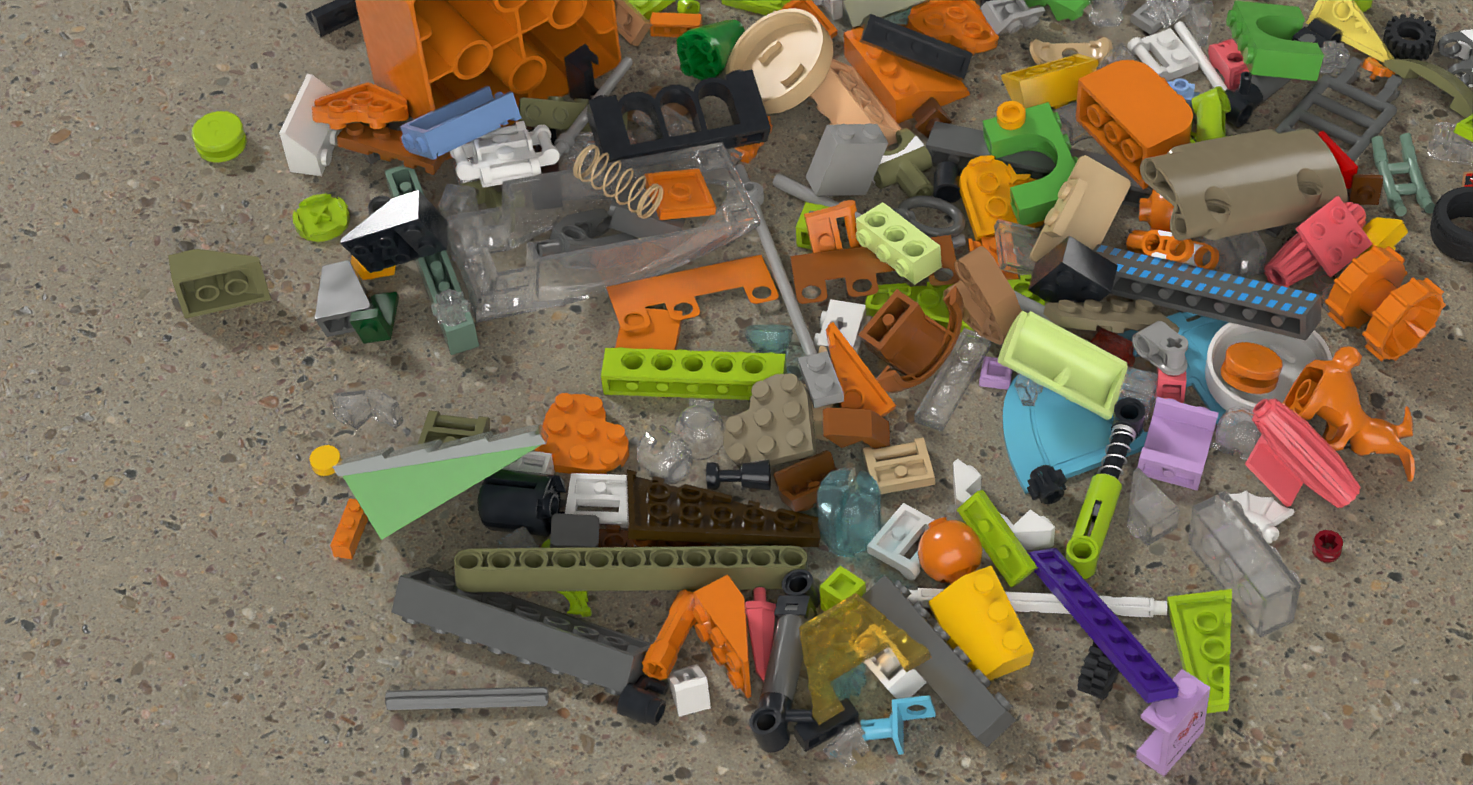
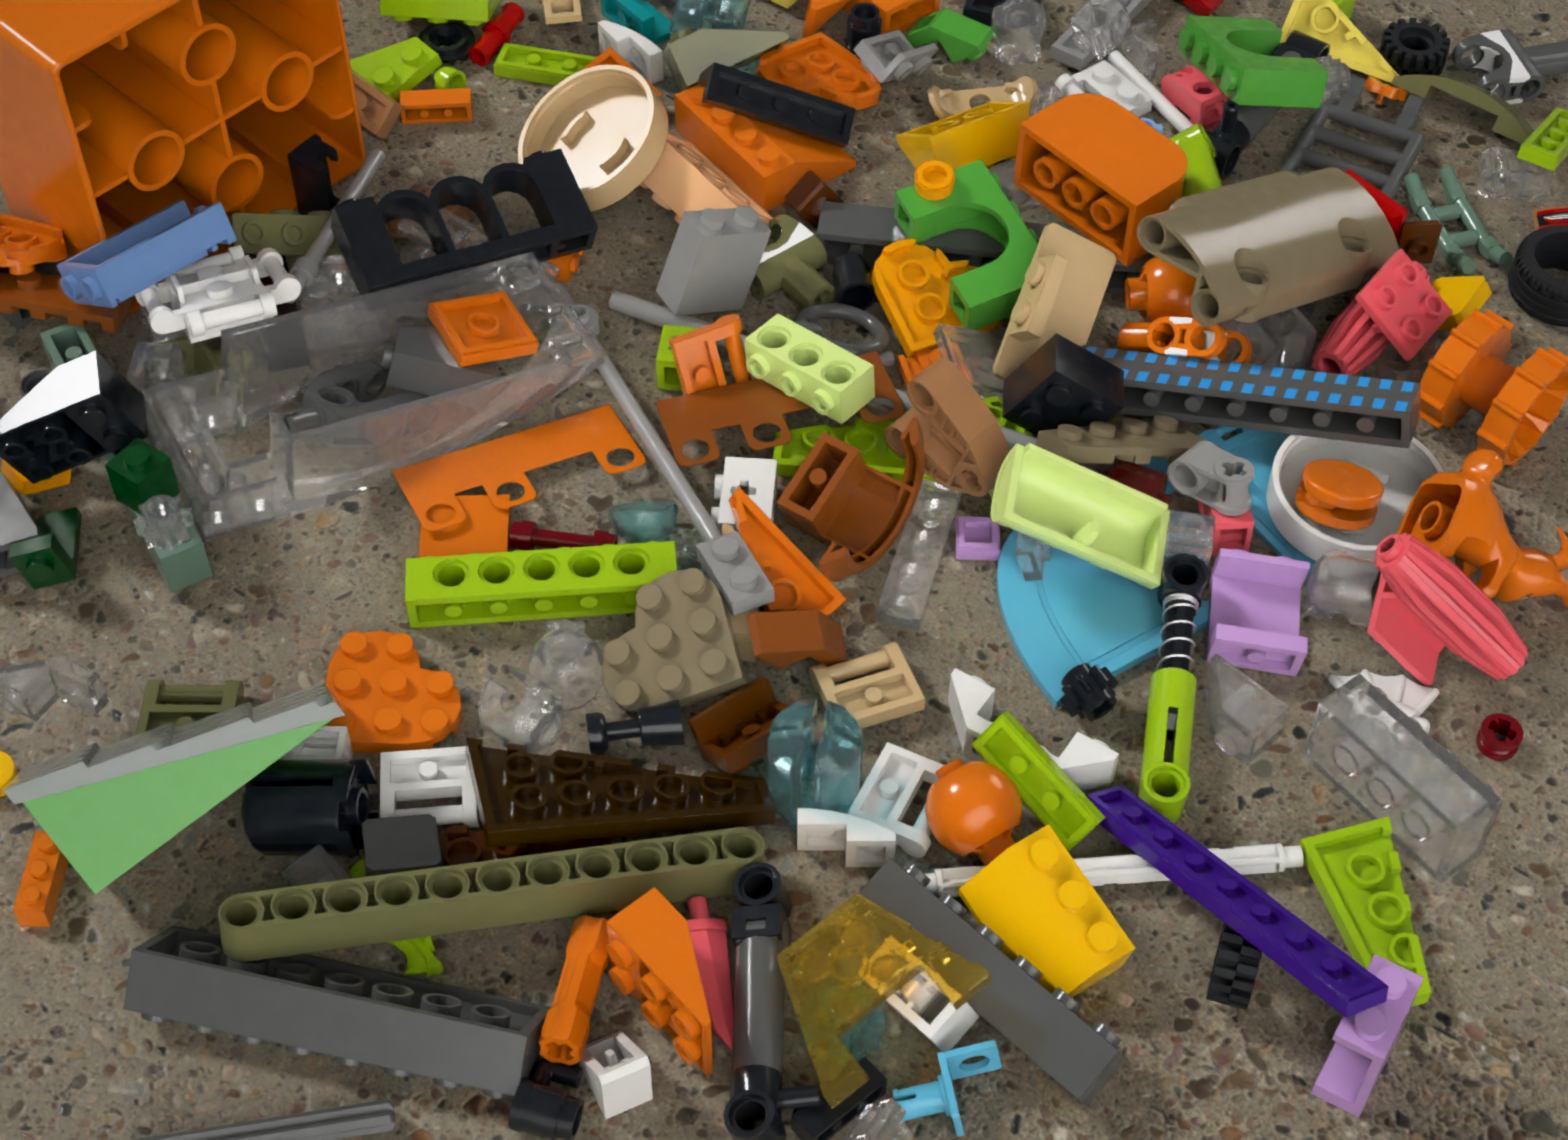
camera: 15 degrees left, 0 degrees up
(439, 274) = (140, 474): none -> dark green brick
(578, 163) = (354, 295): tan piece -> none
(689, 340) = (525, 536): none -> dark red bar
(706, 48) = (486, 131): green cone -> none
(840, 586) = (824, 888): lime brick -> none
(862, 557) = (861, 839): none -> white slope

